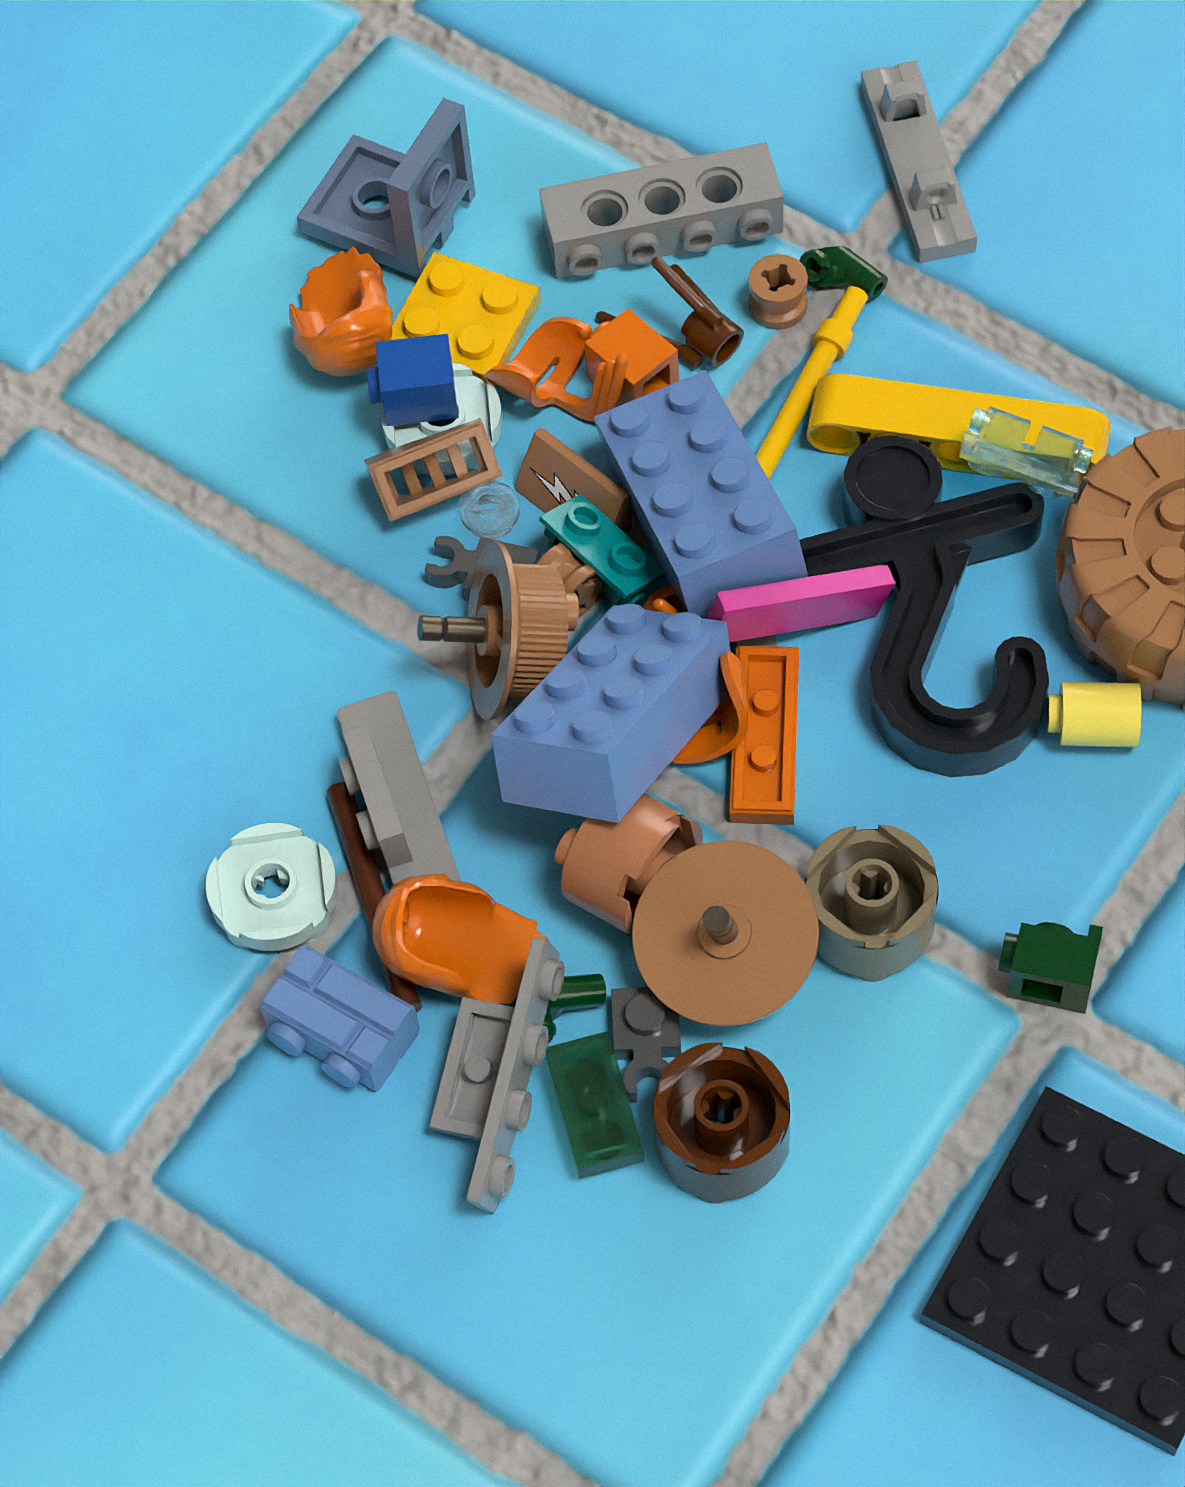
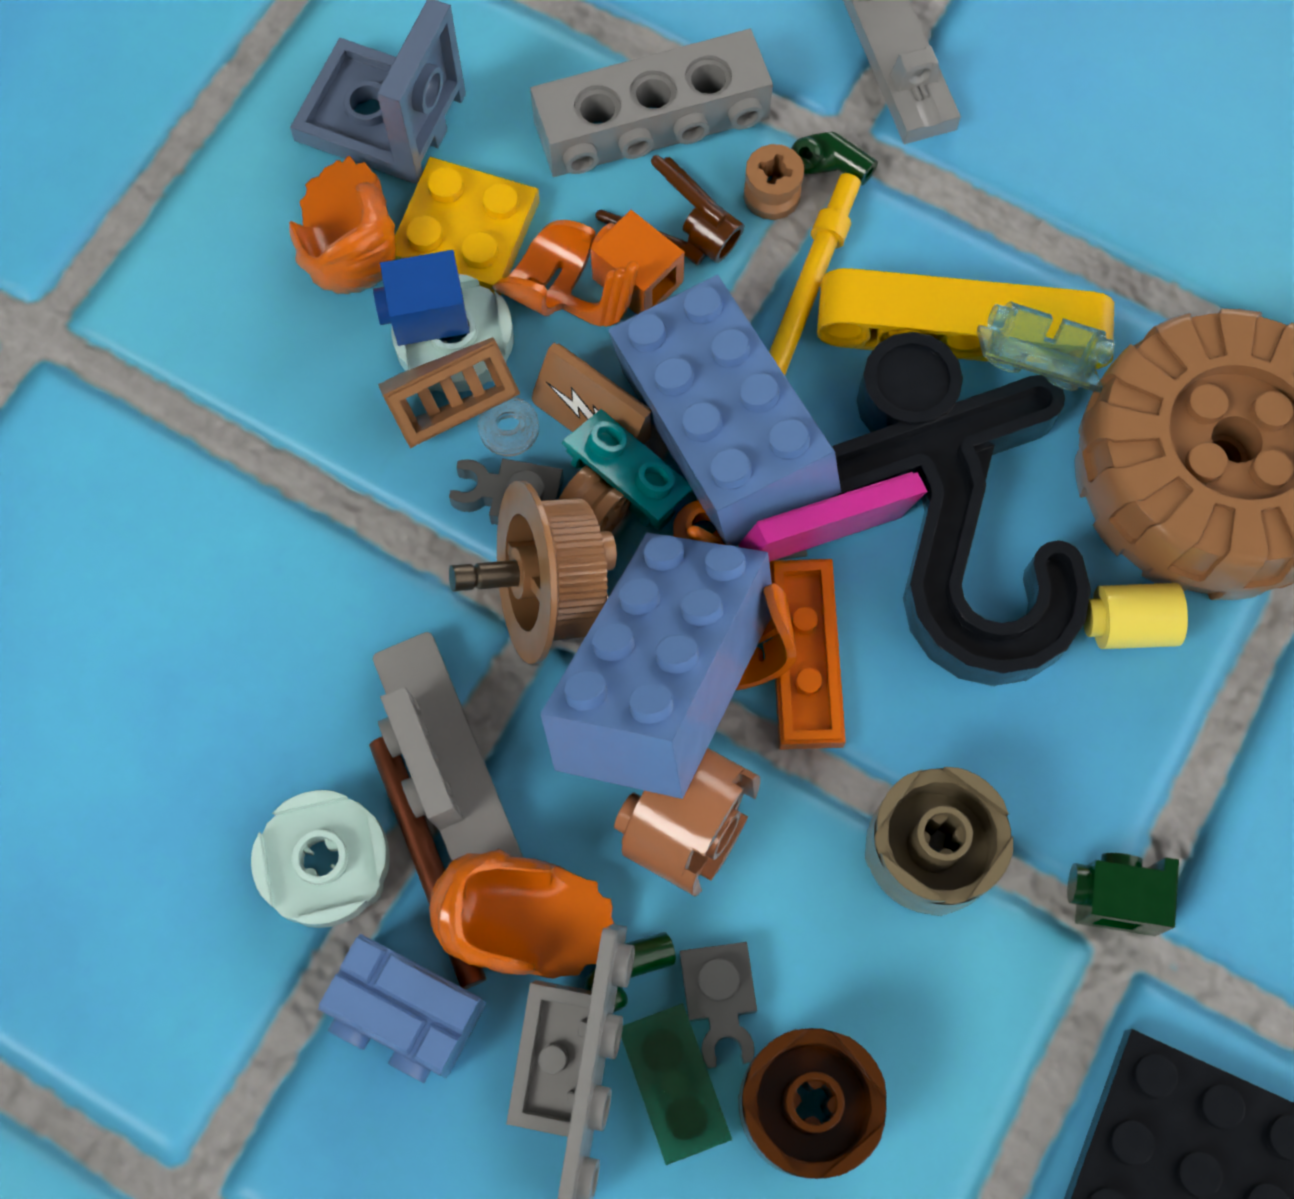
camera: 10 degrees left, 10 degrees up
(725, 933) = (798, 897): medium nougat piece -> none

